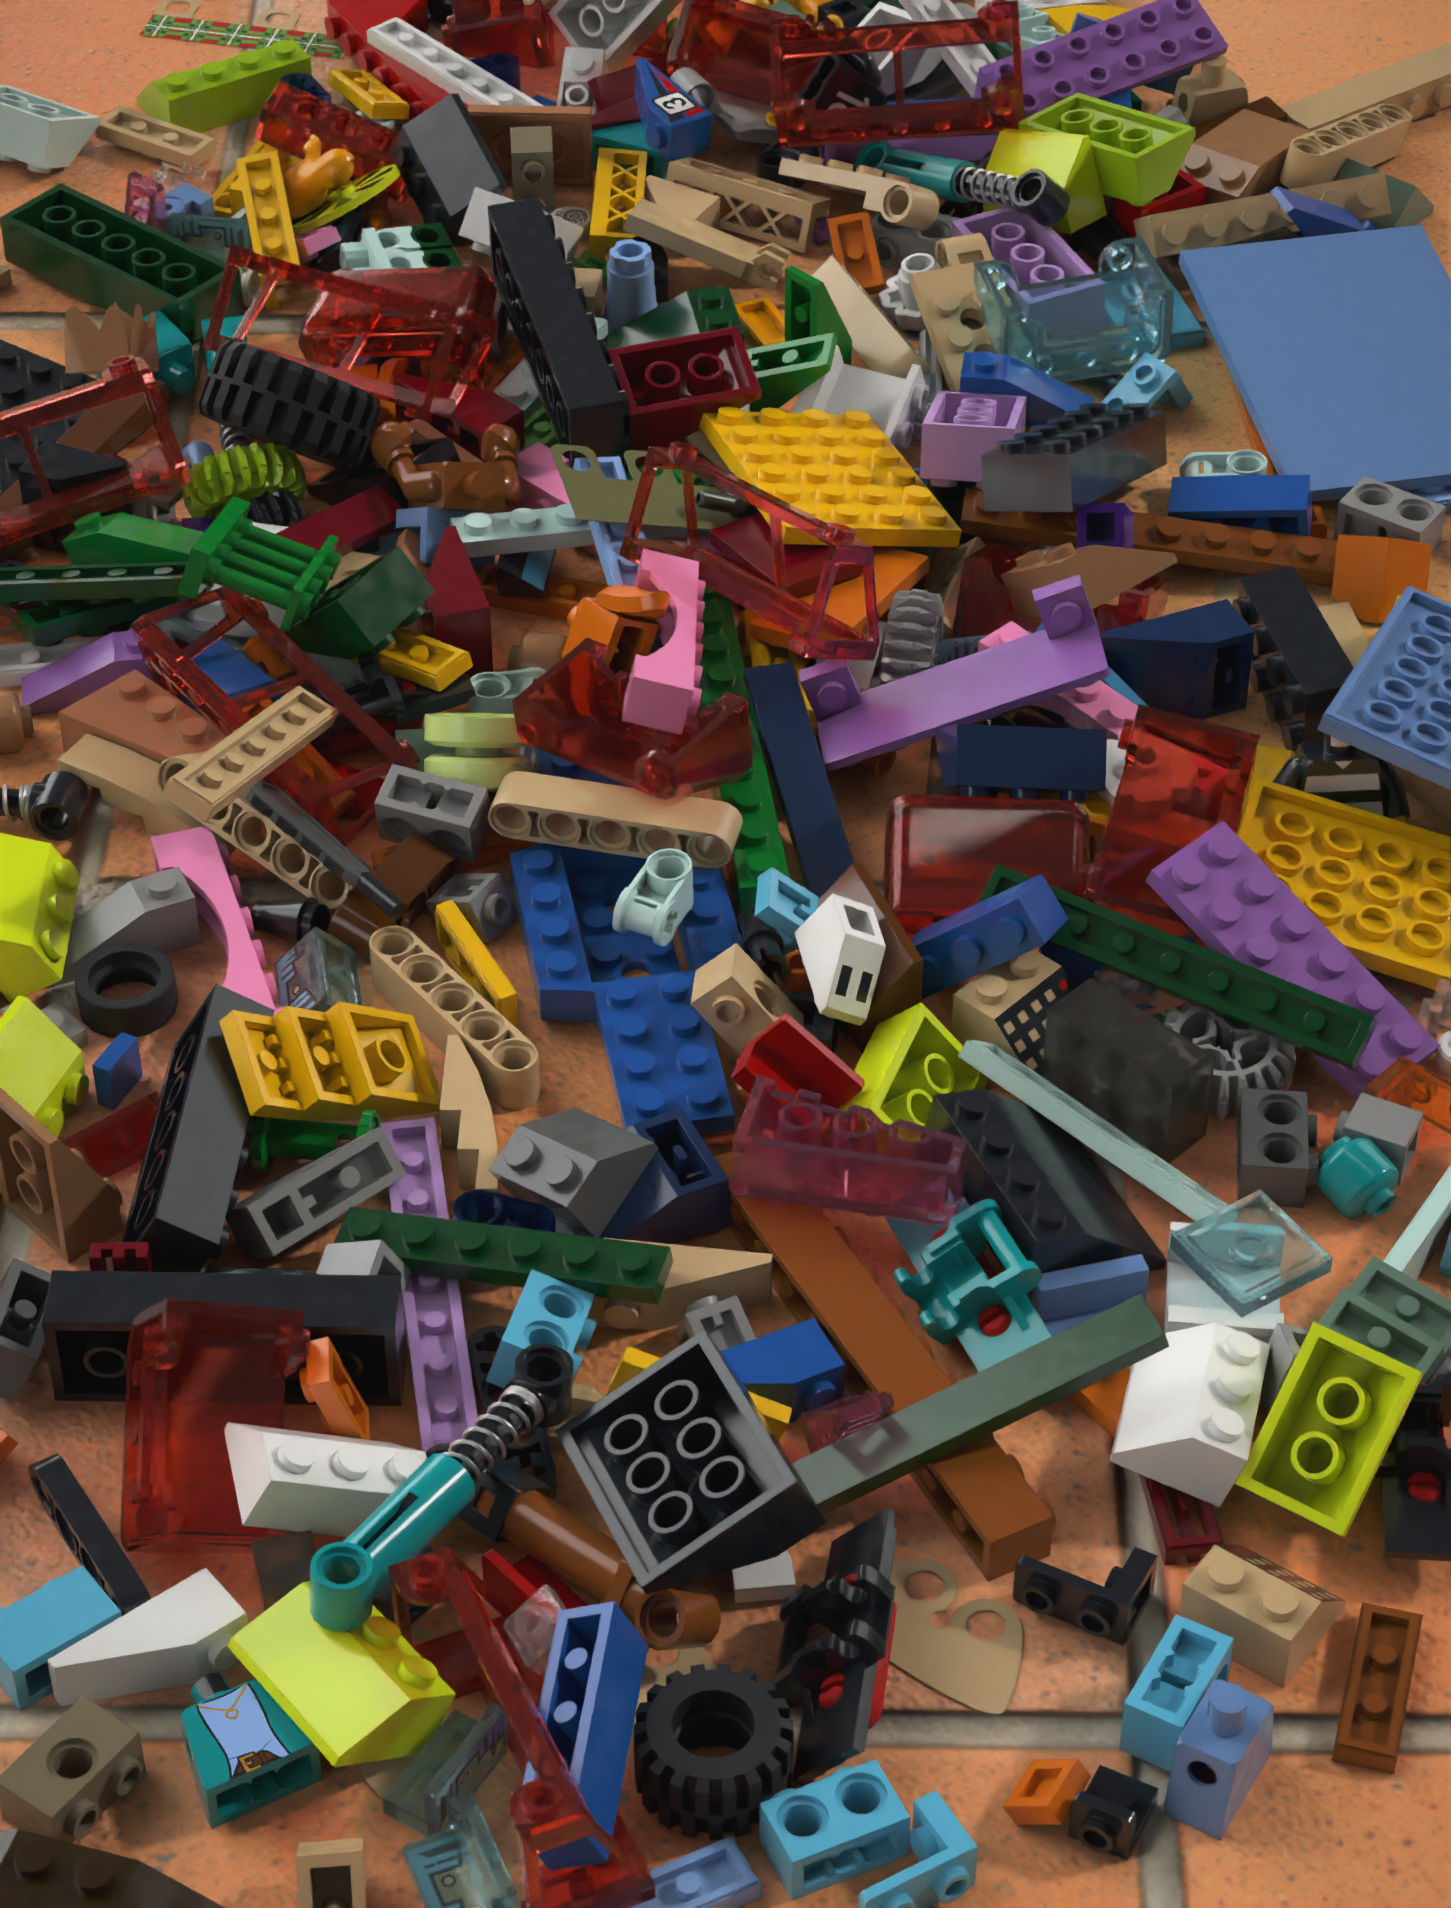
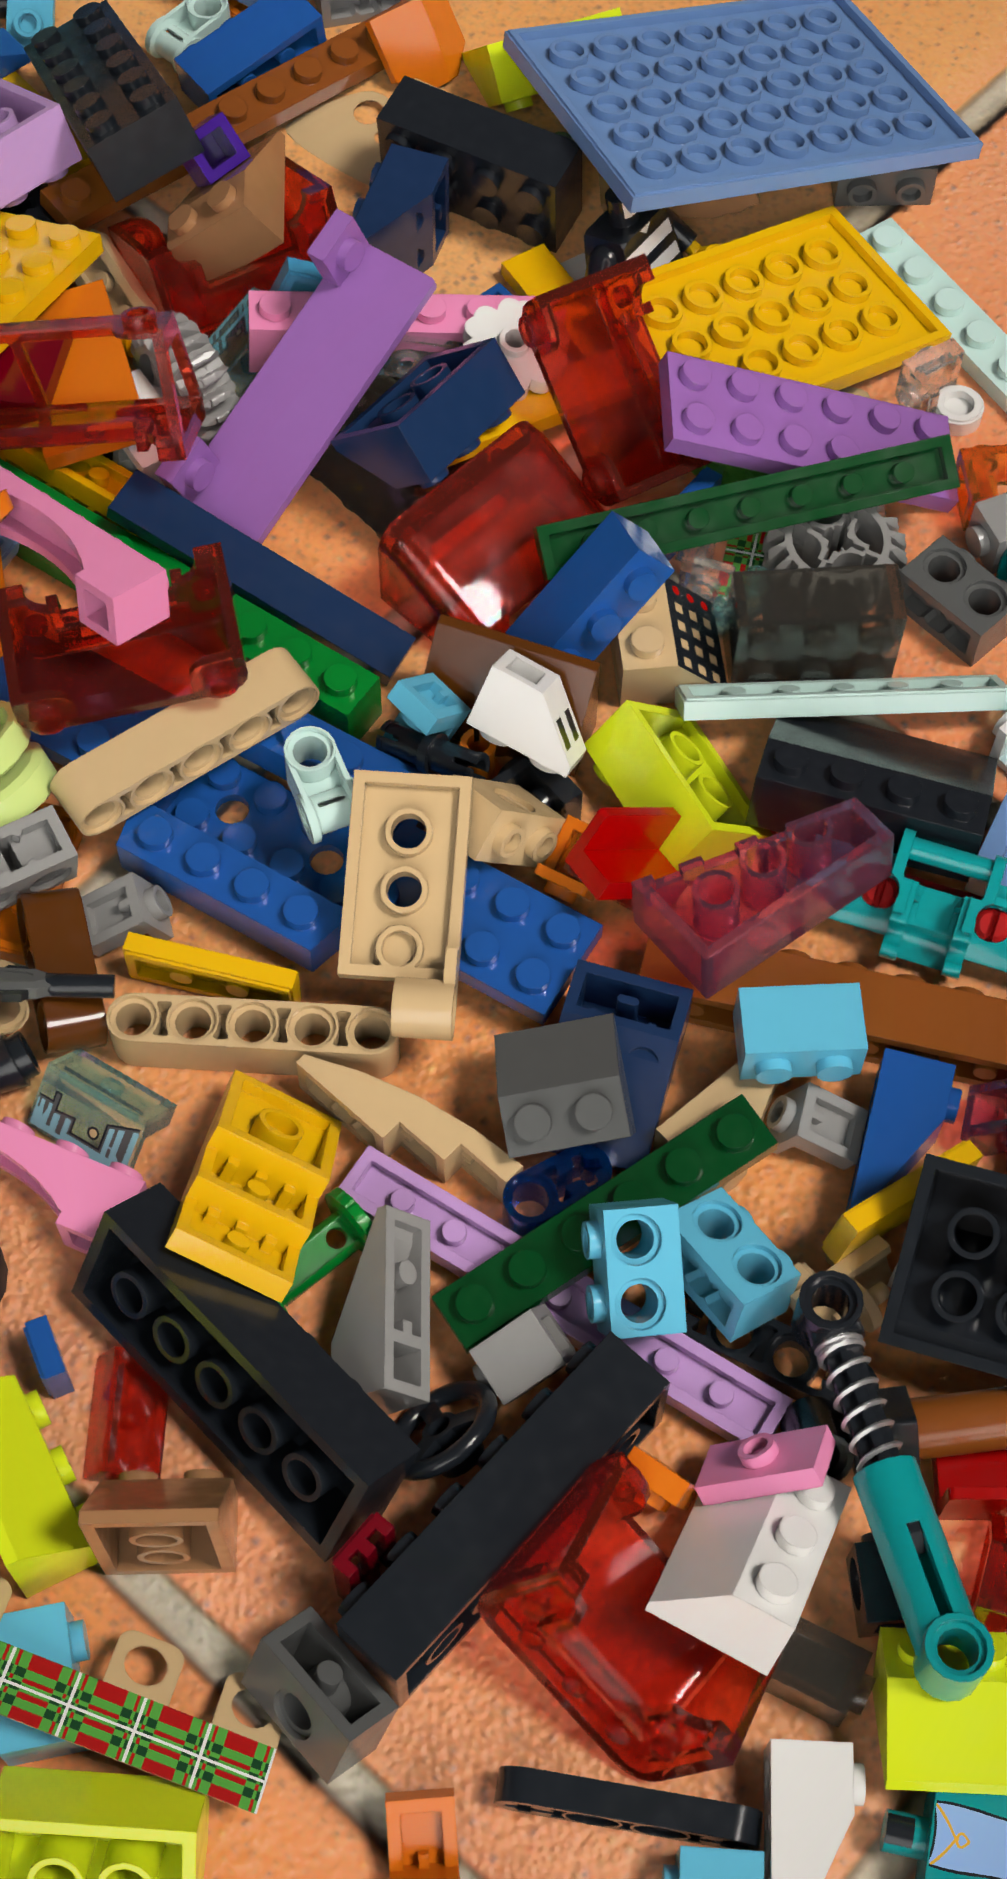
camera: 50 degrees left, 20 degrees up
(398, 1432) = (765, 1465): none -> bright pink plate
(483, 1281) = (653, 1263): none -> medium azure brick
(588, 1022) = (417, 942): none -> tan hinge
(758, 1249) = (800, 1032): none -> medium azure brick

